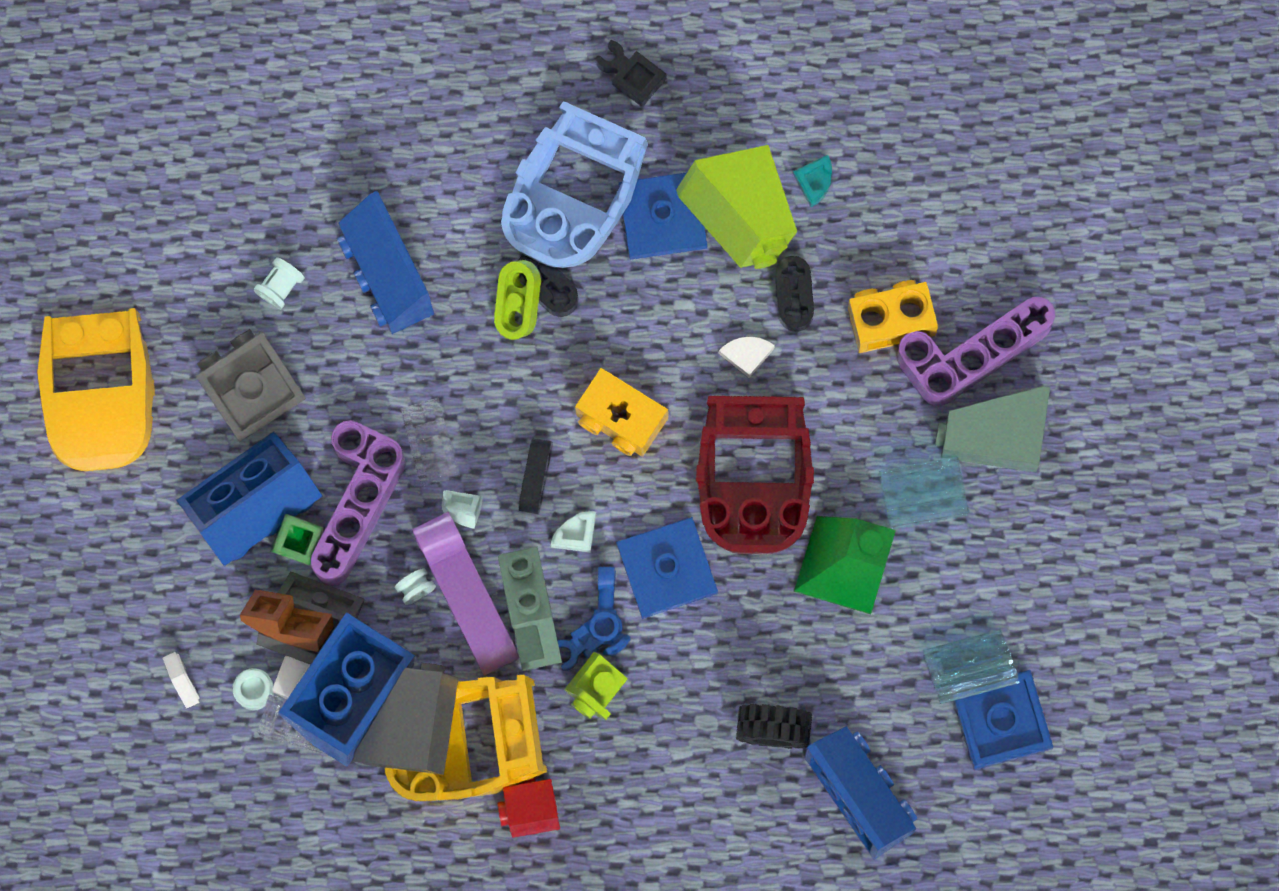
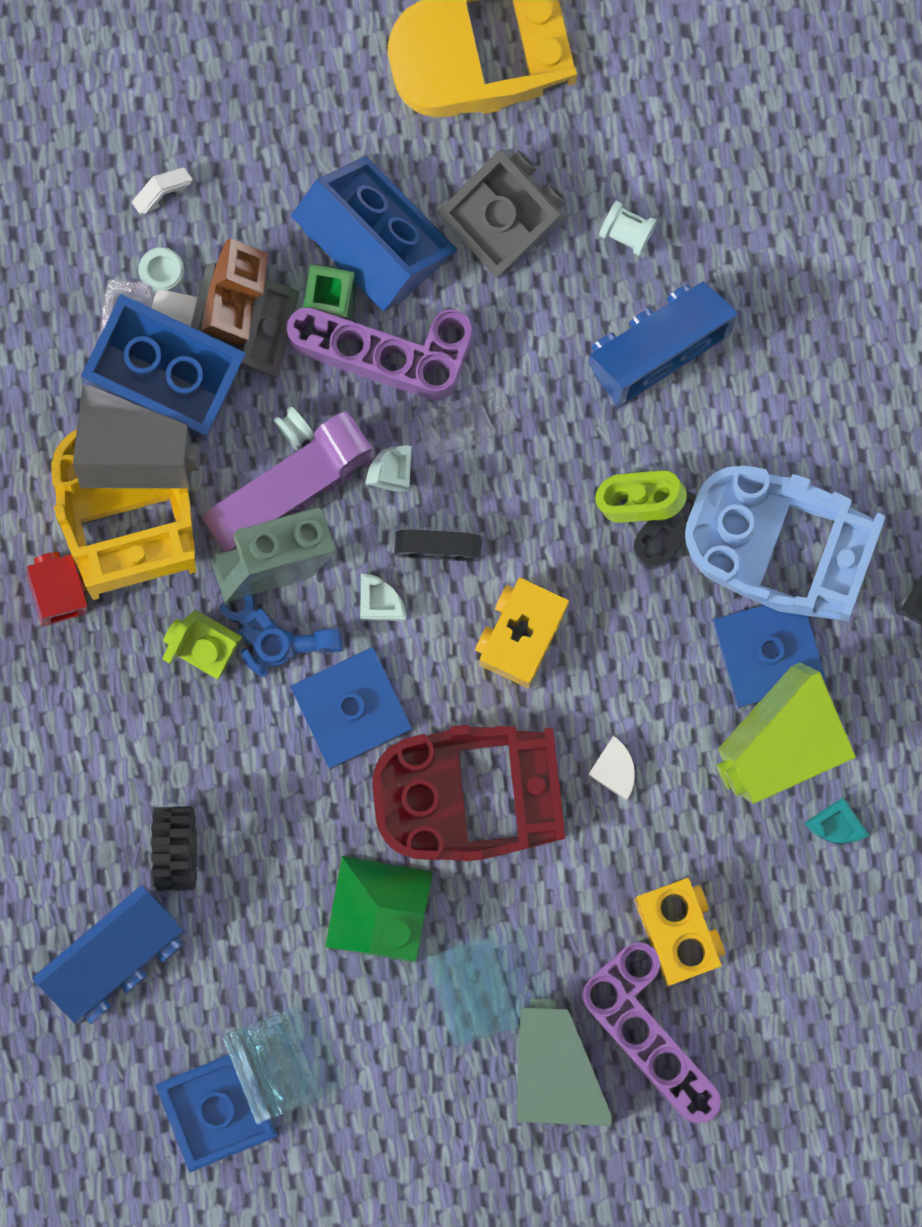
camera: 80 degrees right, 5 degrees up
(803, 293) = (693, 803): black beam -> none

